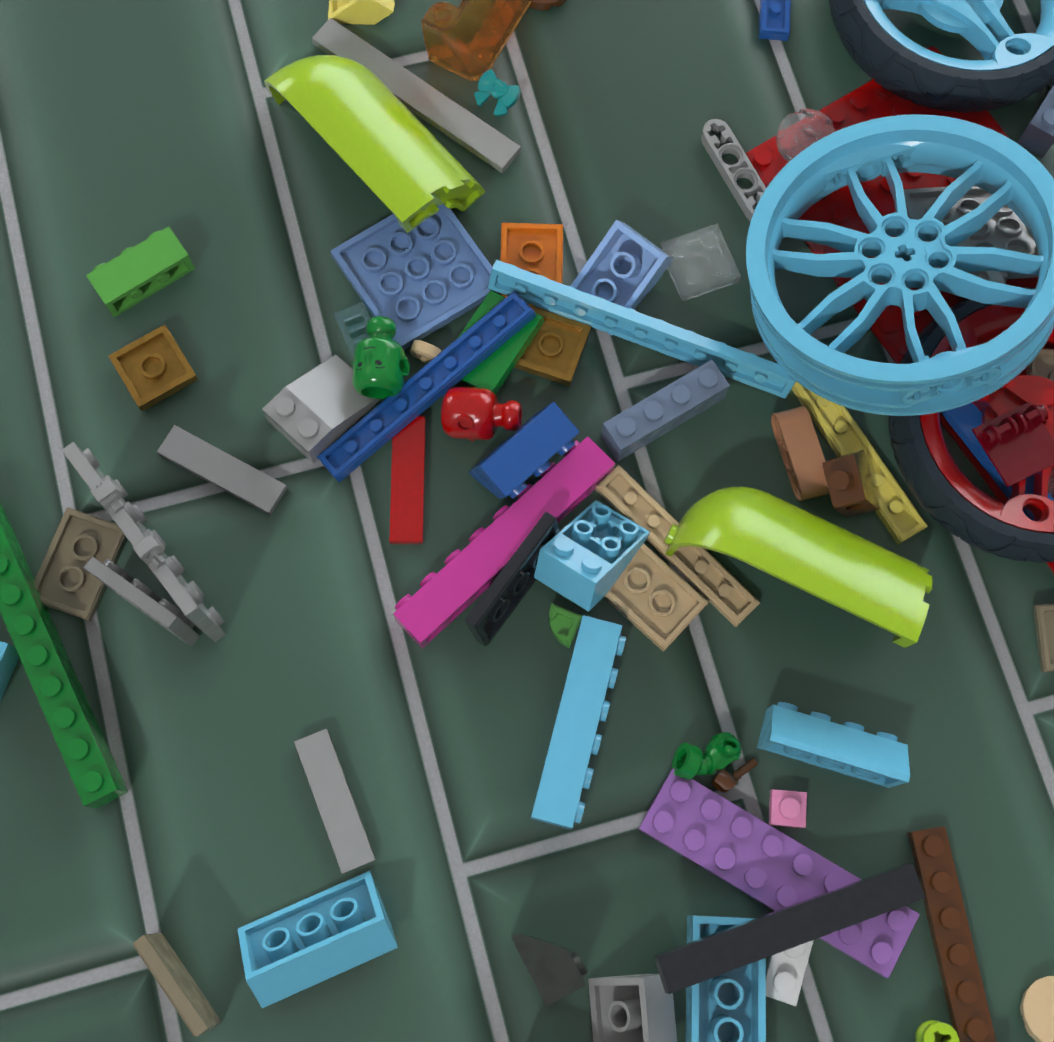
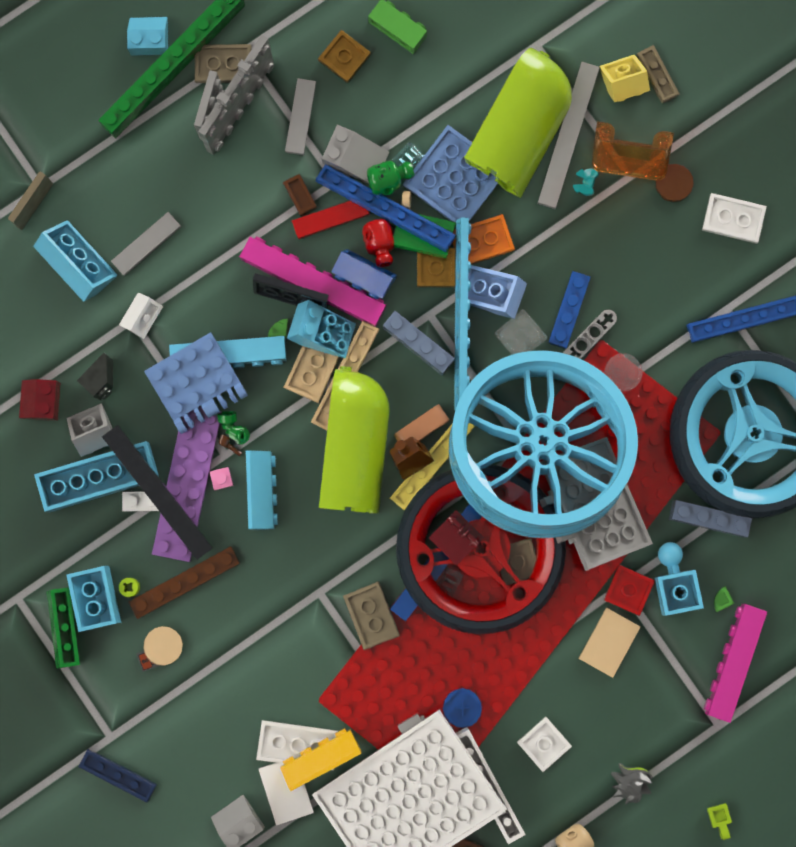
camera: 75 degrees right, 10 degrees up
(350, 515) = (300, 195): none -> reddish brown tile
(457, 852) = (141, 315): none -> white panel
(608, 794) = (193, 380): none -> medium blue hinge
(683, 182) = (569, 309): none -> blue plate

